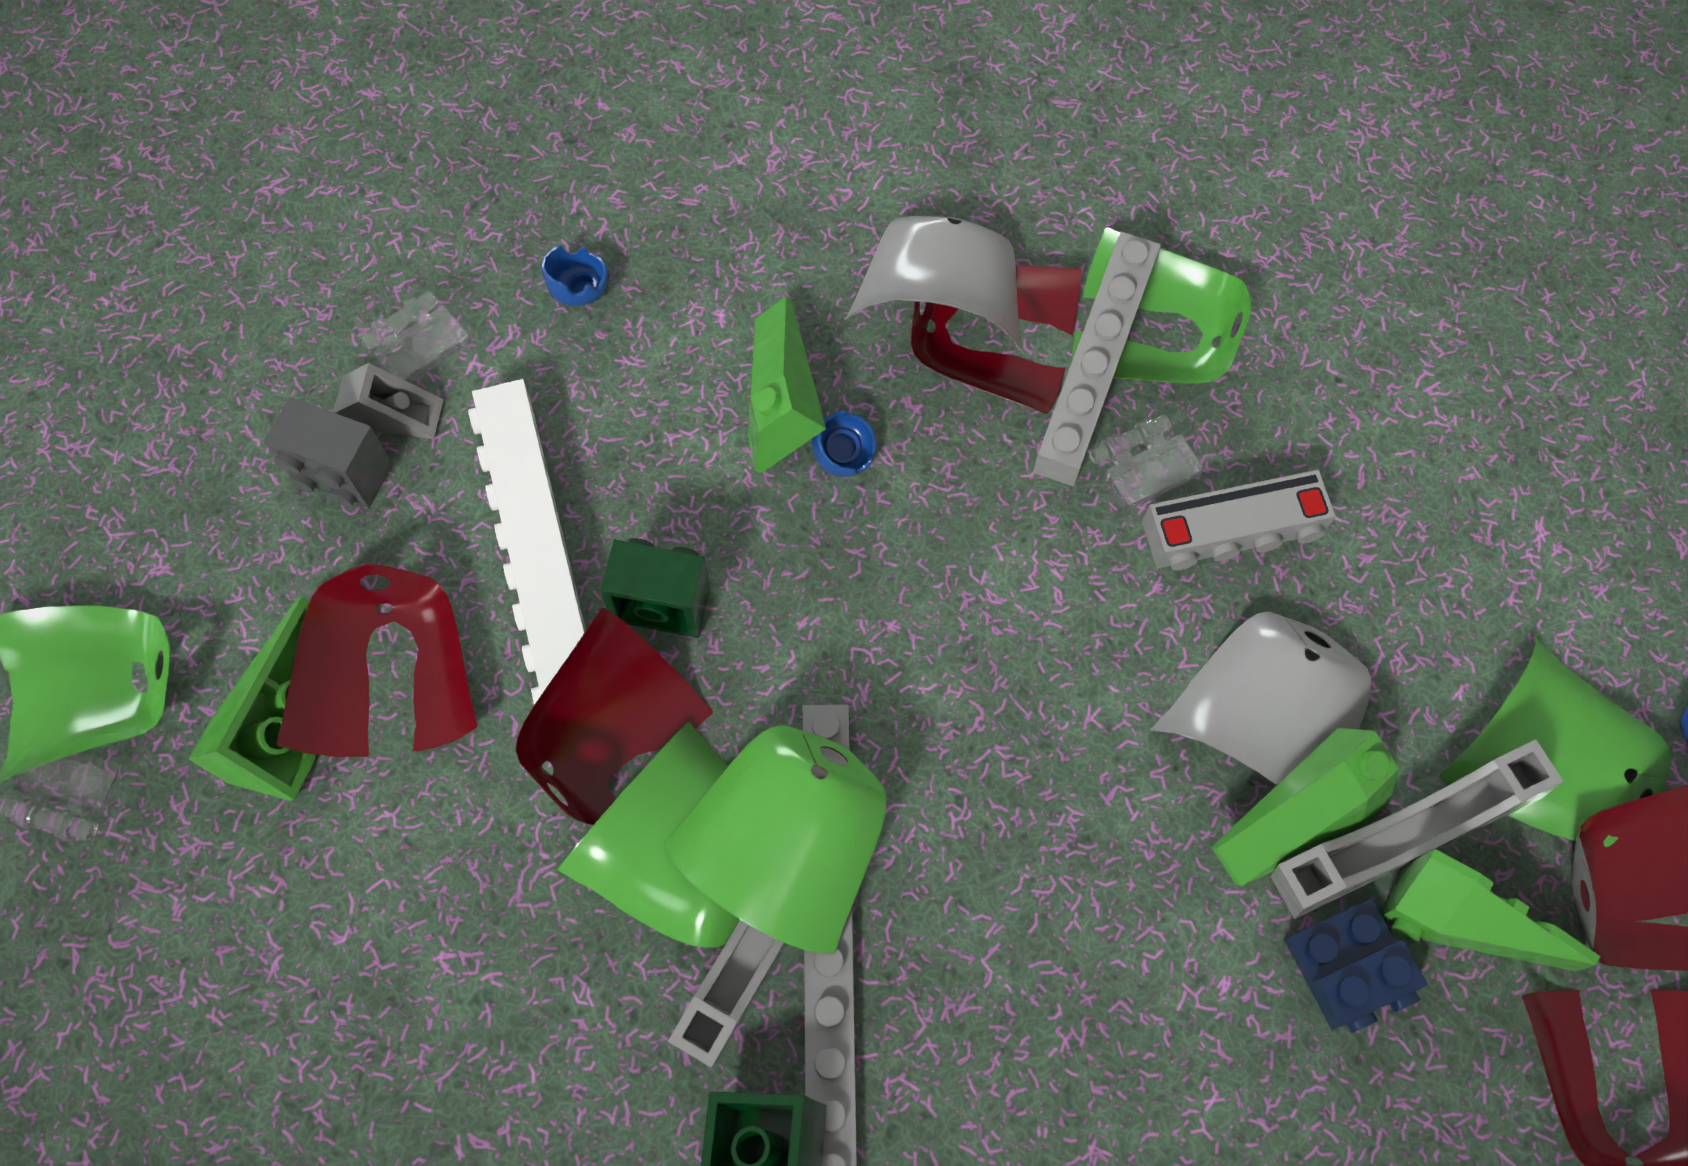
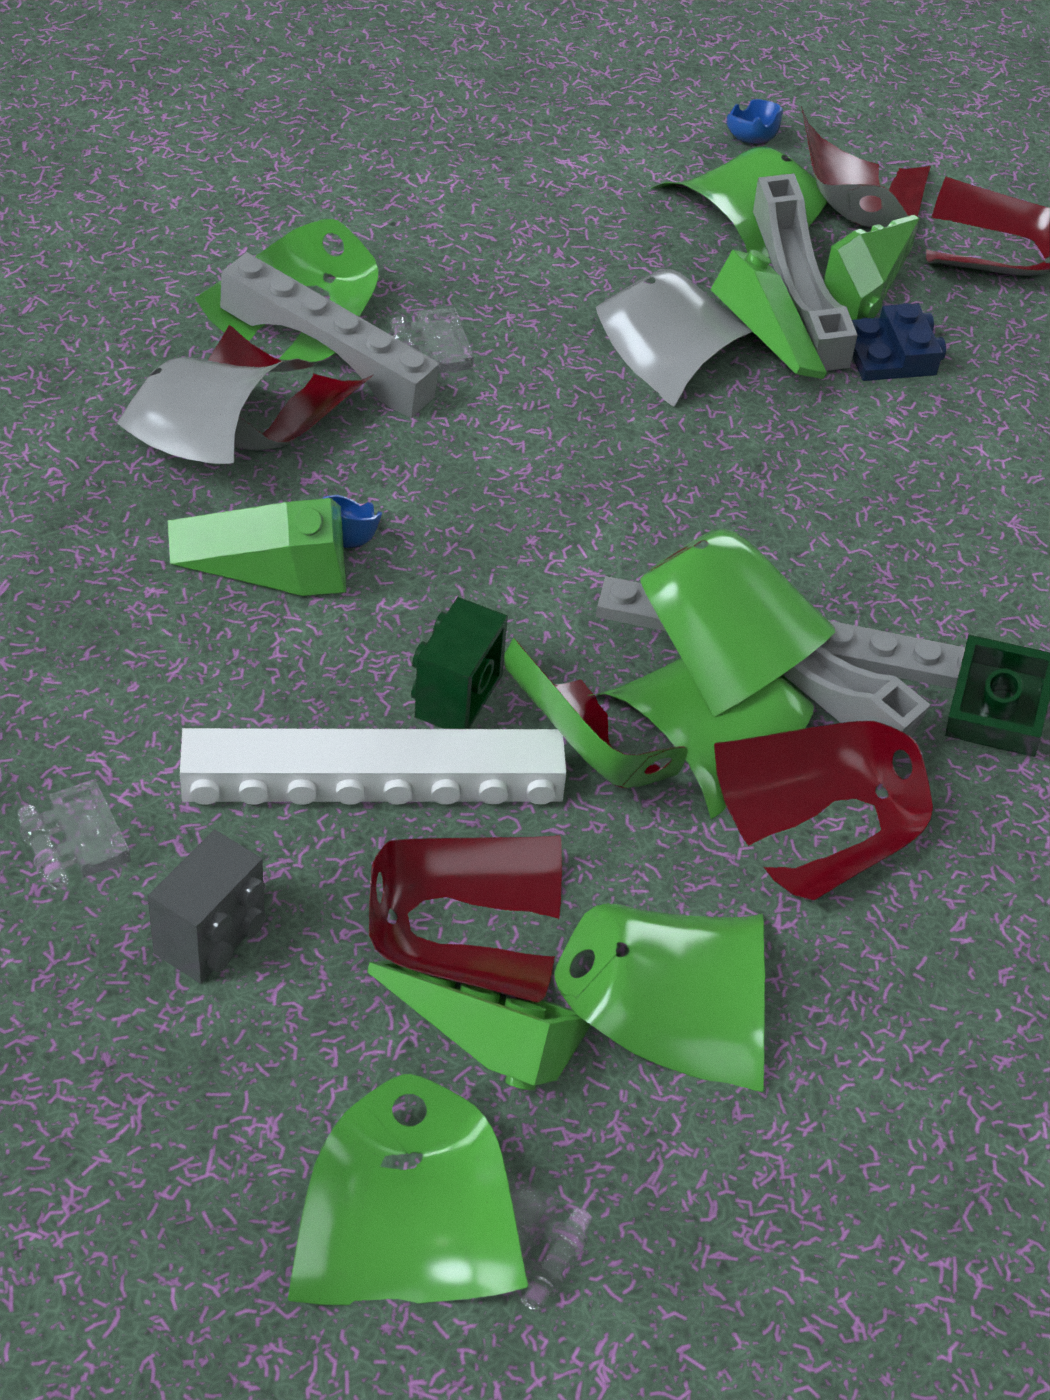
camera: 80 degrees left, 20 degrees down
(343, 868) = (681, 995): none -> bright green piece
(387, 403) = (143, 863): light grey slope -> none
(574, 277) = (65, 679): blue hair -> none
(616, 943) = (796, 774): none -> dark red piece
(1238, 520) = (508, 303): light grey brick -> none

